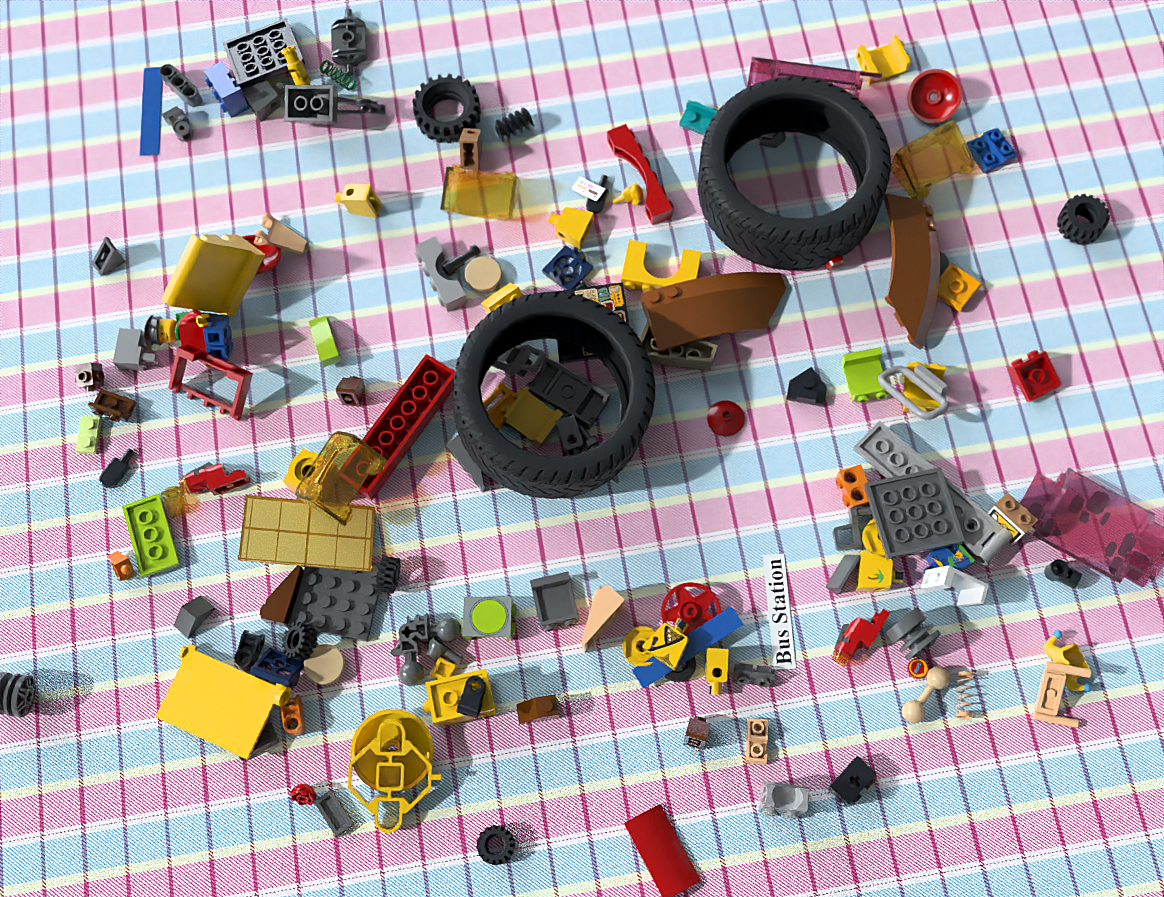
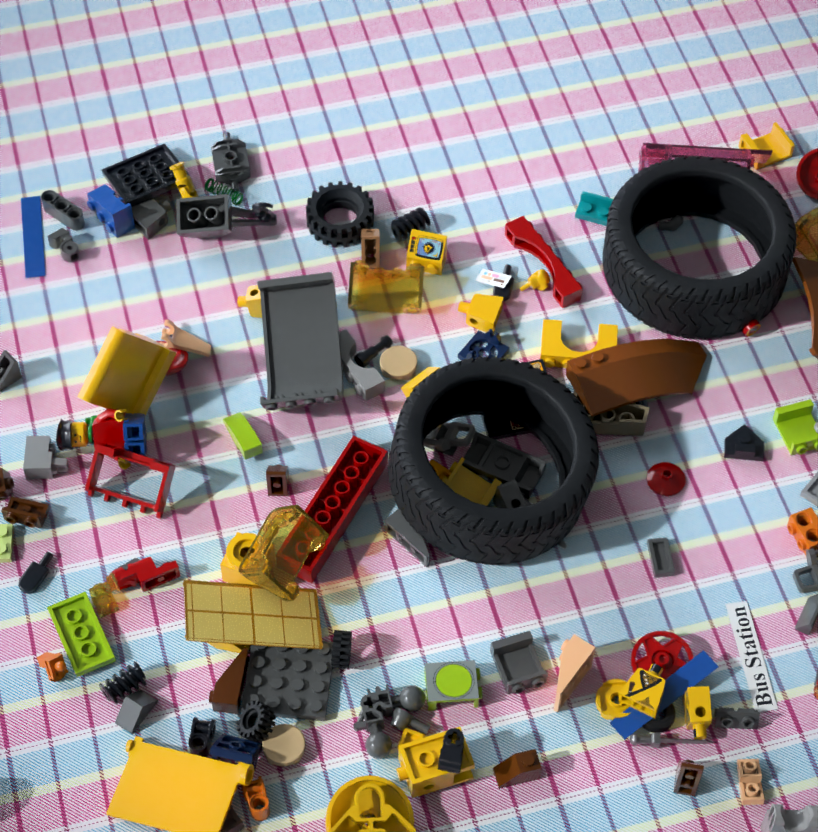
camera: 10 degrees left, 15 degrees down
(183, 591) = (123, 683): none -> black piece
(389, 251) = (301, 341): none -> dark grey panel
(525, 157) = (427, 250): none -> yellow slope
(672, 691) = (655, 740): none -> flat silver sword
(707, 501) = (660, 557): none -> dark grey tile

